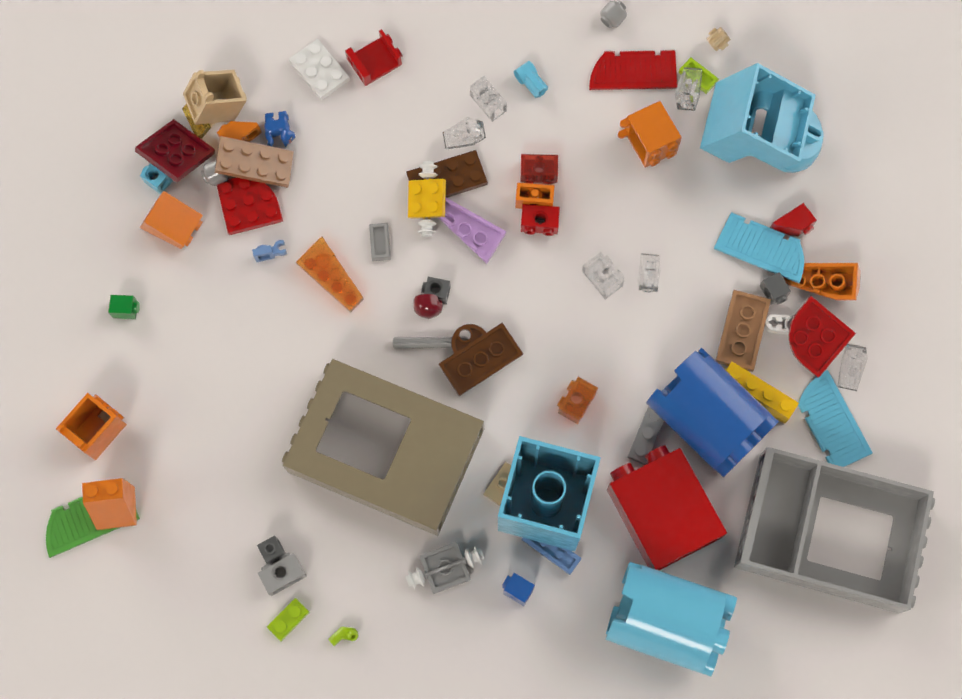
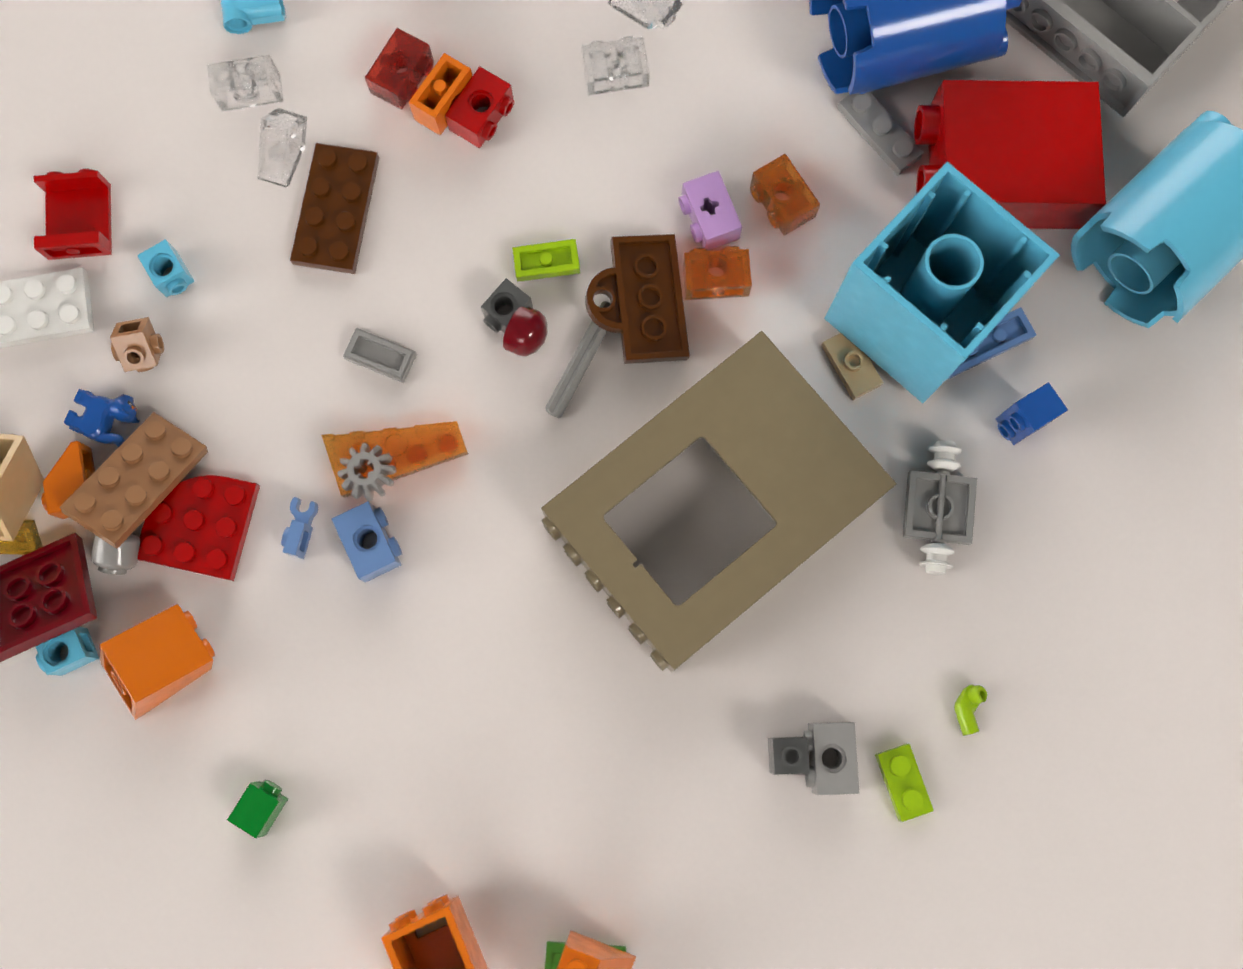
camera: 65 degrees left, 5 degrees up
(279, 277) = (353, 527): none -> medium blue brick
(315, 261) = (358, 465): none -> light grey gear
(321, 124) = (136, 345): none -> medium nougat brick
(369, 109) = (157, 260): none -> medium azure brick
(426, 198) = (354, 247): yellow plate -> none
(473, 230) = (438, 211): lavender wing -> none
(474, 296) = (546, 260): none -> lime plate
(517, 397) = (703, 285): none -> clear orange brick
(543, 376) = (710, 195): none -> lavender brick

